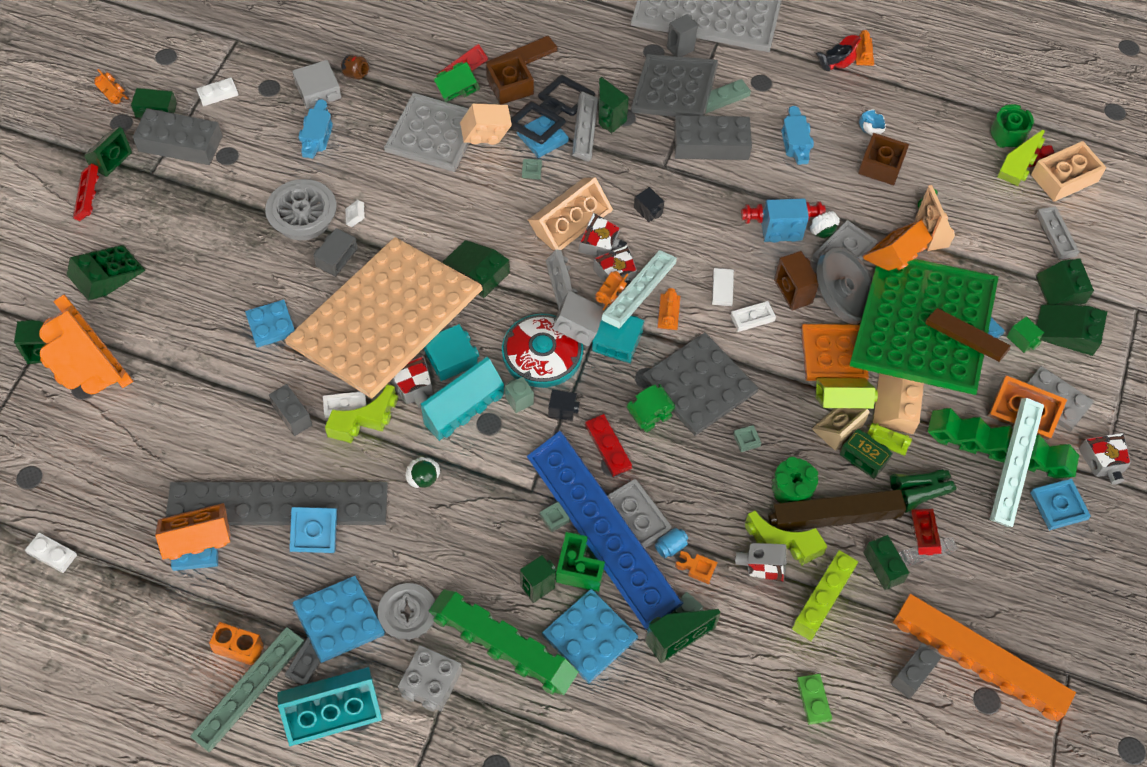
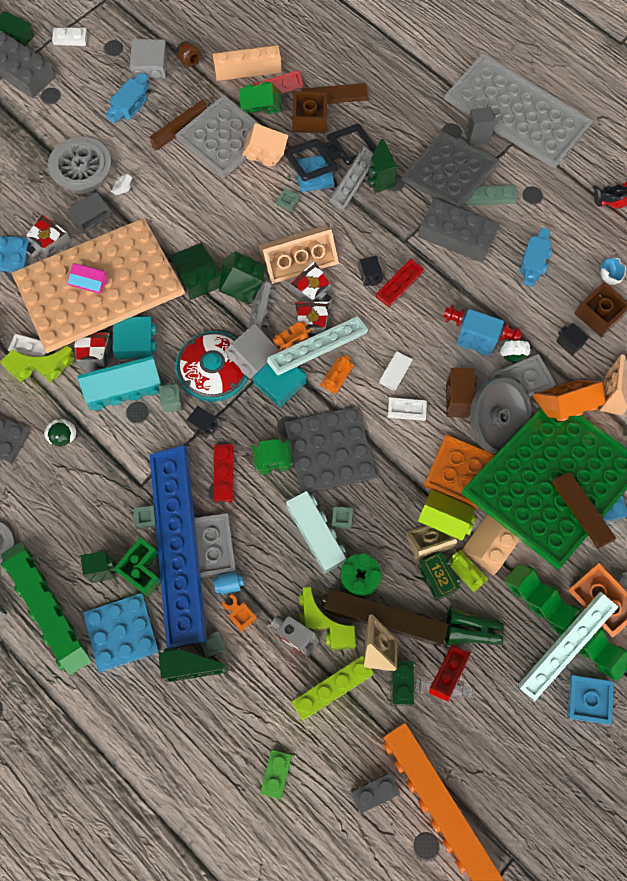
camera: 25 degrees right, 10 degrees up
(304, 292) = (46, 238): none -> torso
(376, 310) = (87, 278): none -> dark pink slope
(380, 139) = (168, 132): none -> reddish brown tile
(418, 54) = (247, 62): none -> light nougat slope
(528, 254) = (241, 277): none -> dark green slope
(682, 205) = (399, 283): none -> red plate
(730, 461) = (315, 532): none -> light aqua brick
(848, 535) = (379, 646): none -> tan slope
(869, 195) = (572, 338): none -> black brick

